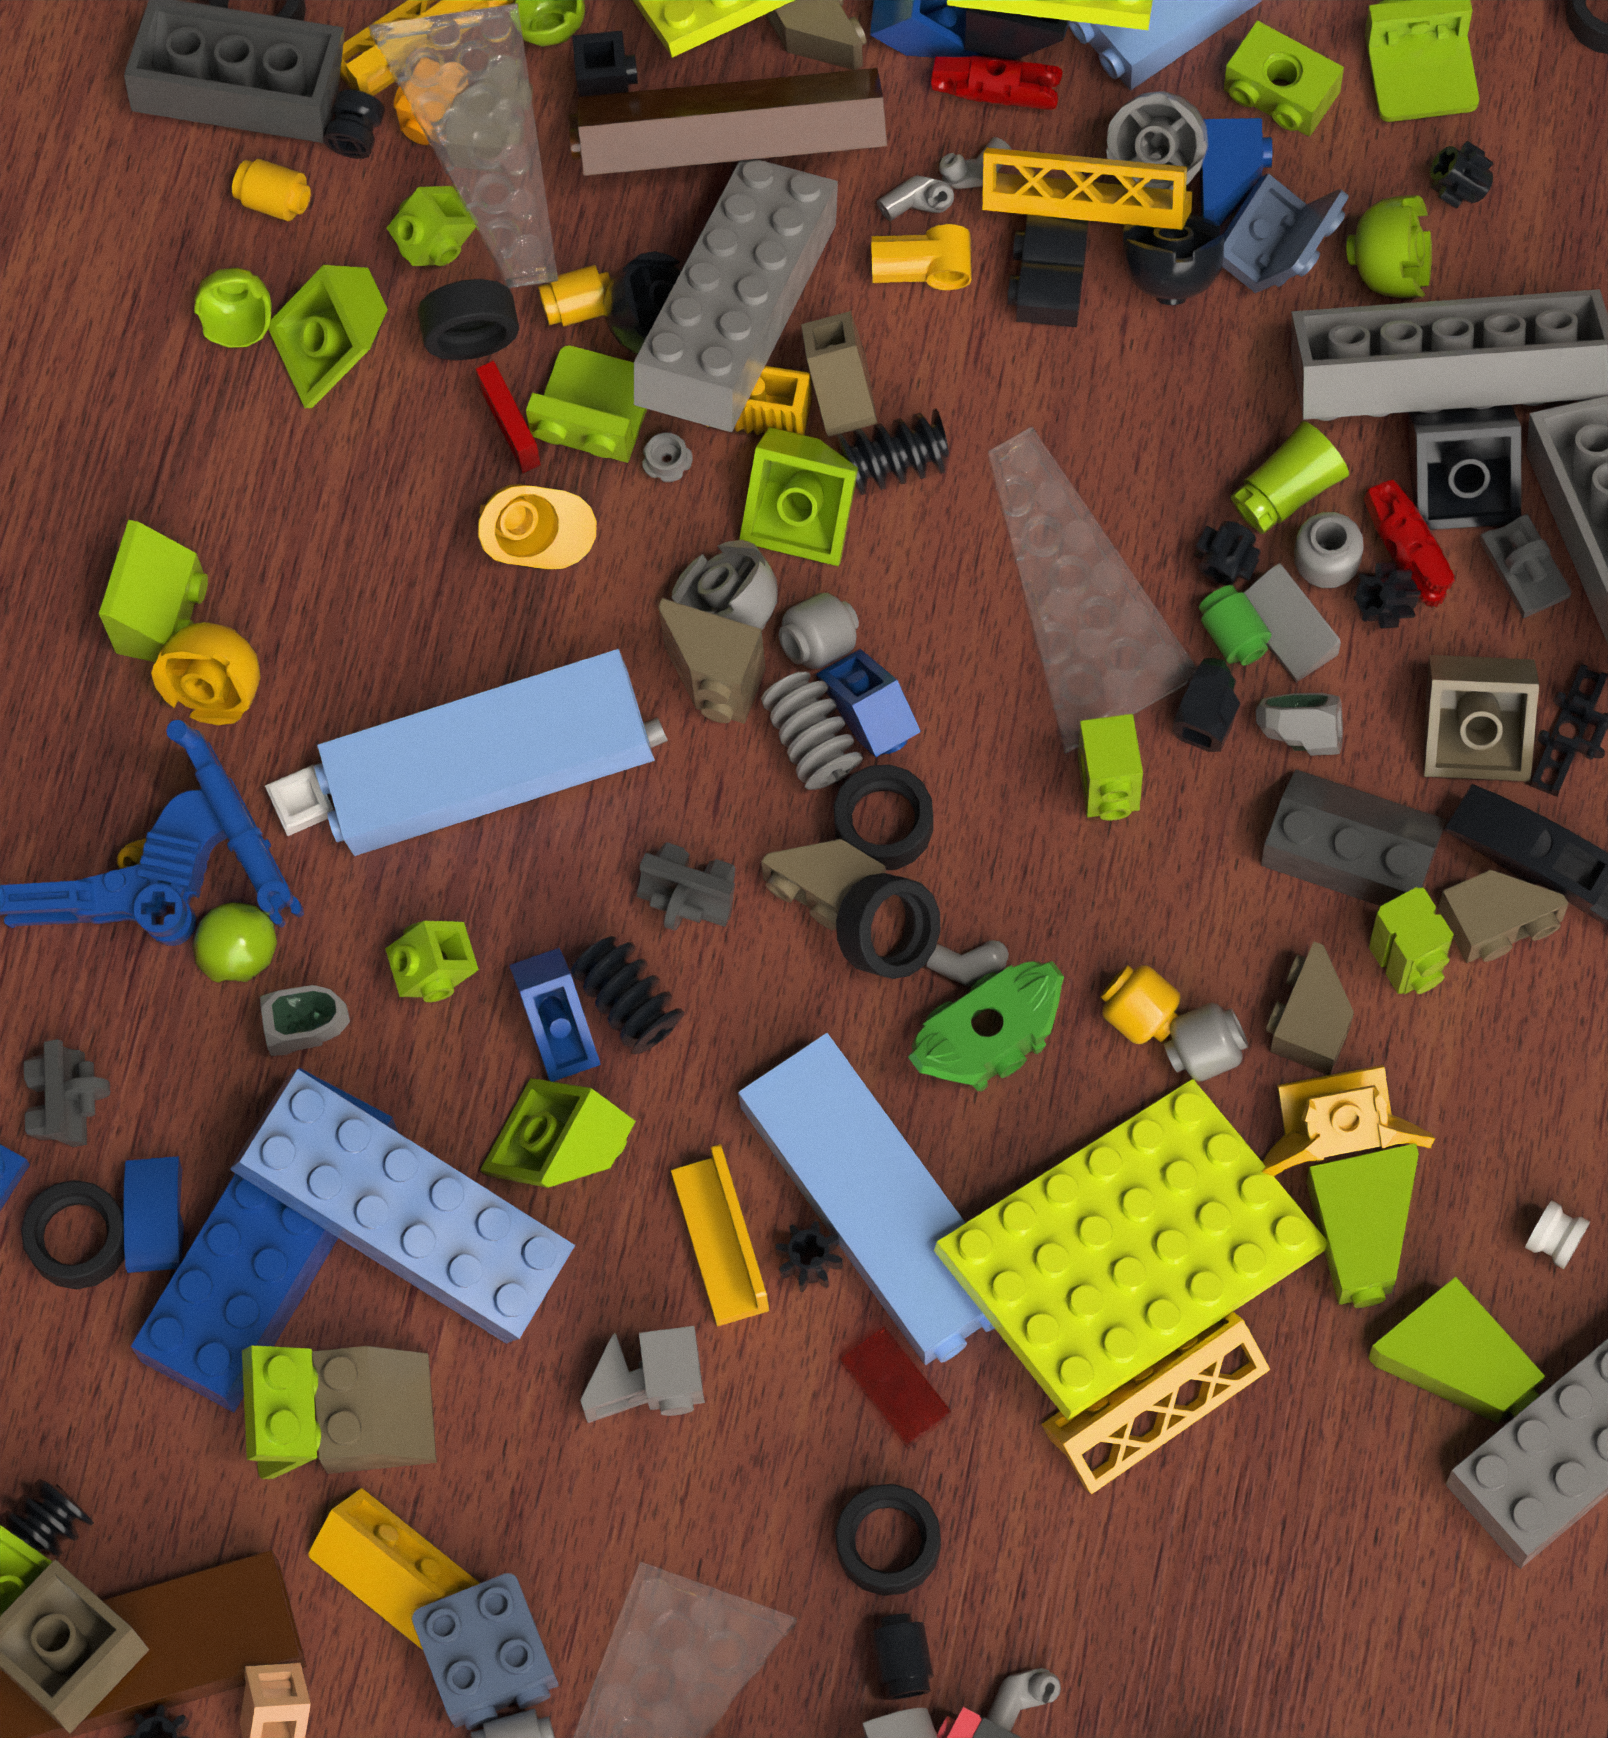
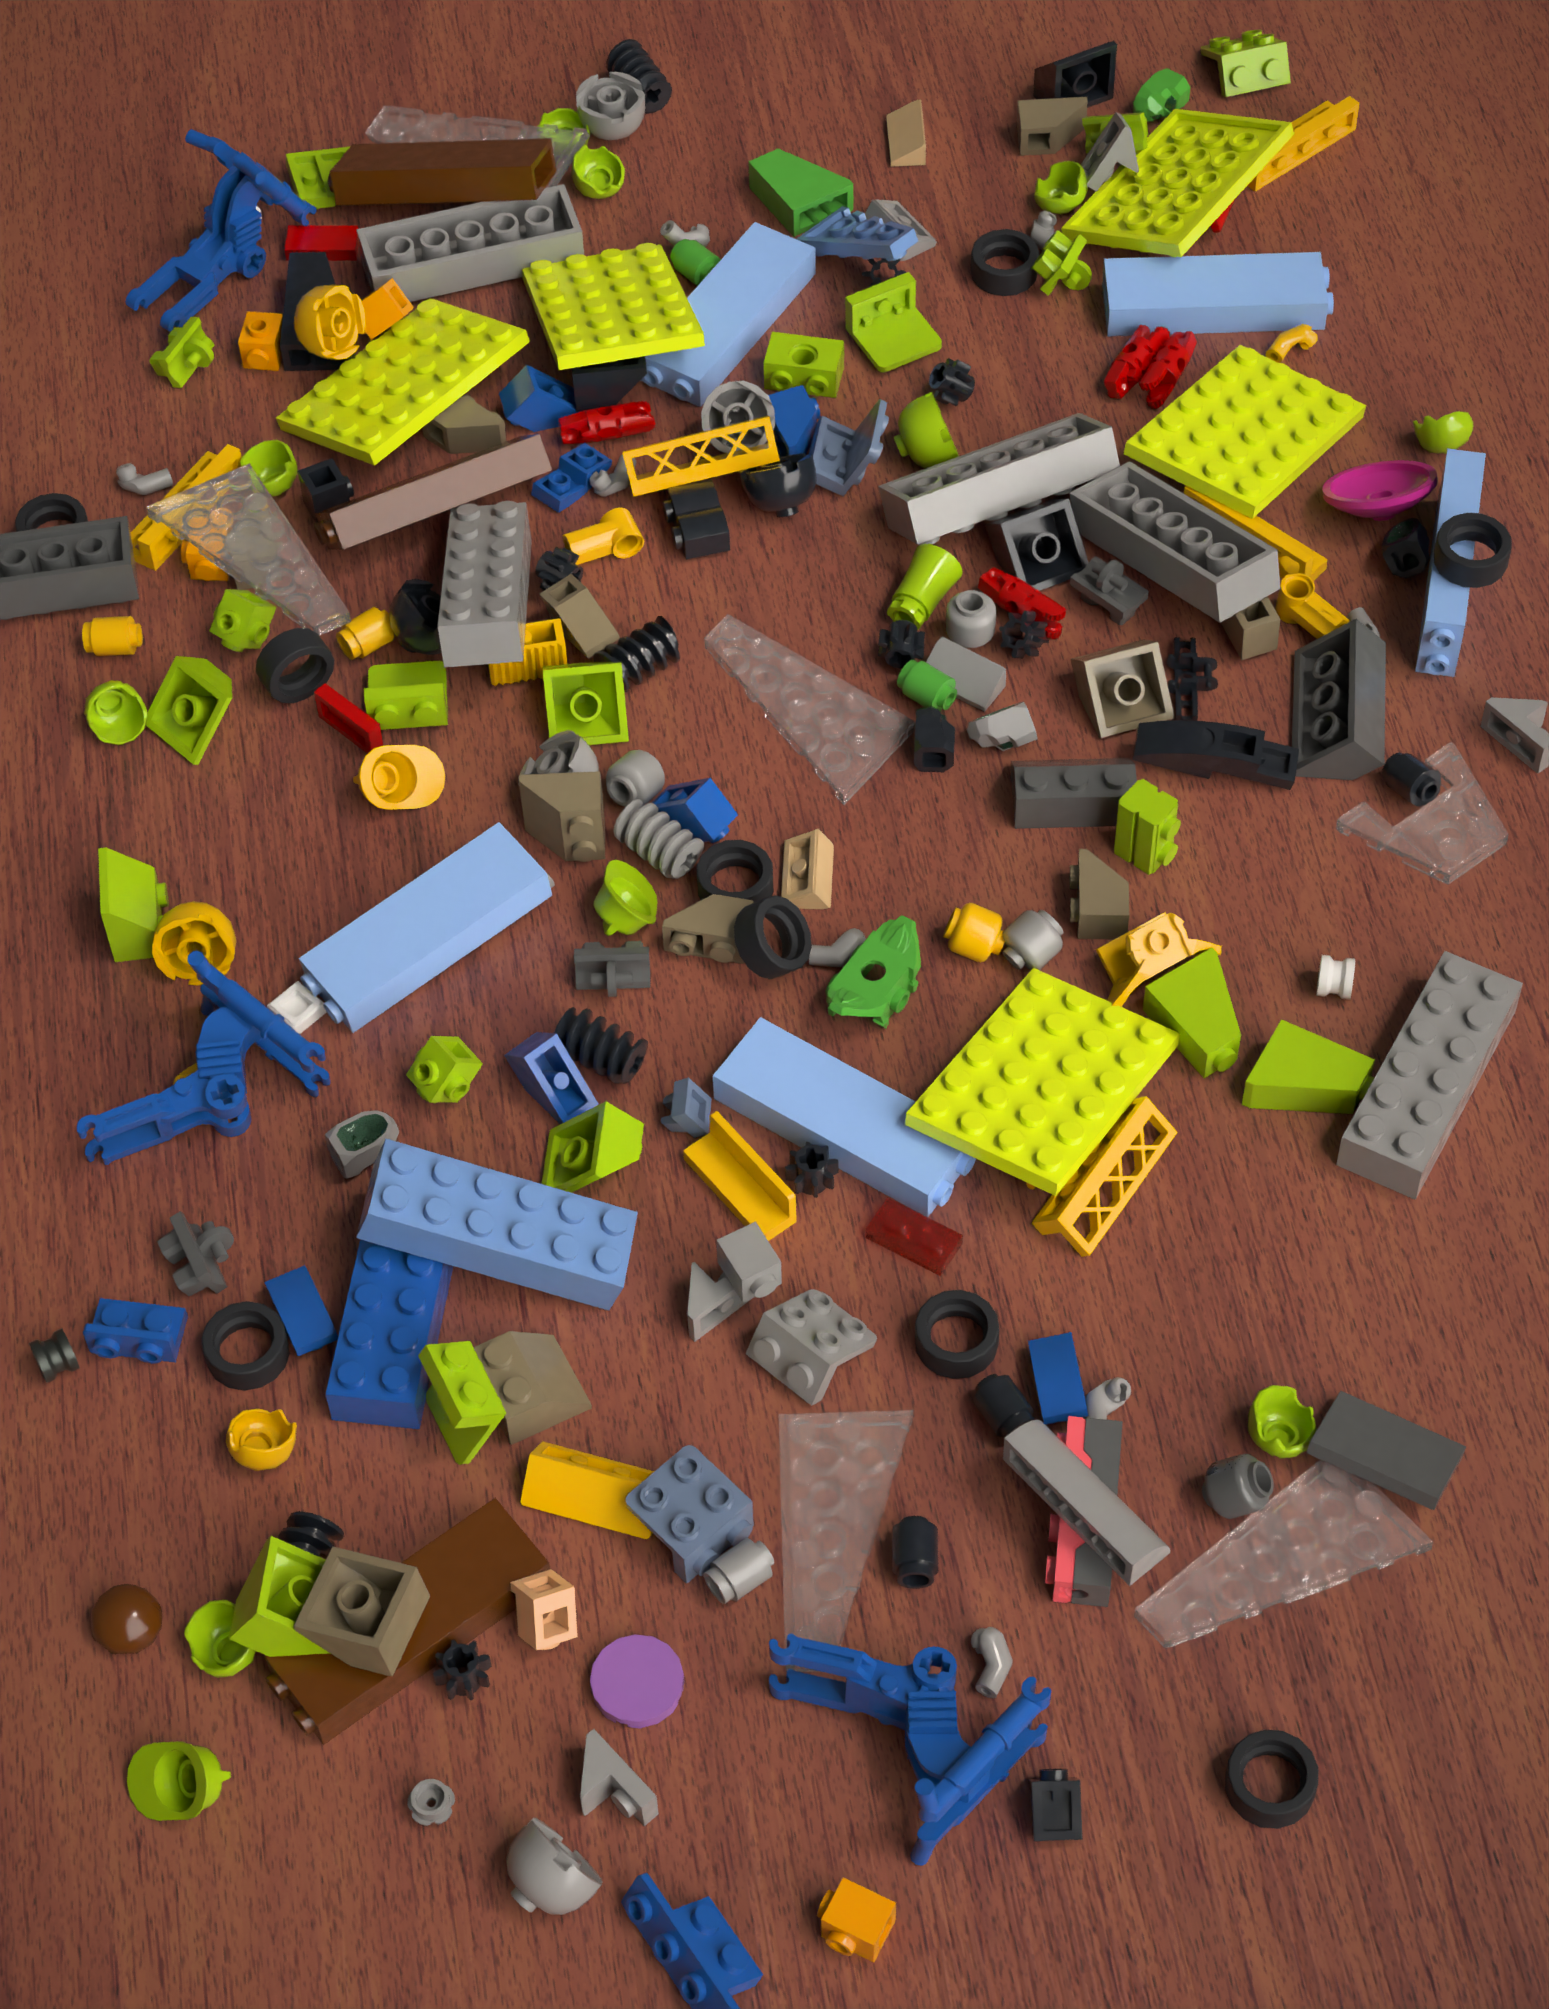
camera: 25 degrees left, 15 degrees down
(46, 1363) = (260, 1438): none -> yellow hair
(234, 942) = (286, 1114): lime hair -> none
(354, 124) = (156, 579): black wheel -> none
(663, 445) = (475, 711): light grey plate -> none
(699, 1117) = (688, 1108): none -> sand blue tile
(715, 1482) = (807, 1341): none -> light grey bracket
(740, 798) = (625, 899): none -> lime piece
(846, 289) = (556, 566): none -> black gear
(919, 194) = (582, 504): light grey arm -> none
(922, 145) = (571, 478): none -> blue slope
(979, 836) = (808, 870): none -> tan slope
(980, 1644) = (1057, 1378): none -> blue slope
(1110, 766) = (883, 789): lime brick -> none
(1497, 911) = (1202, 794): dark tan slope -> none

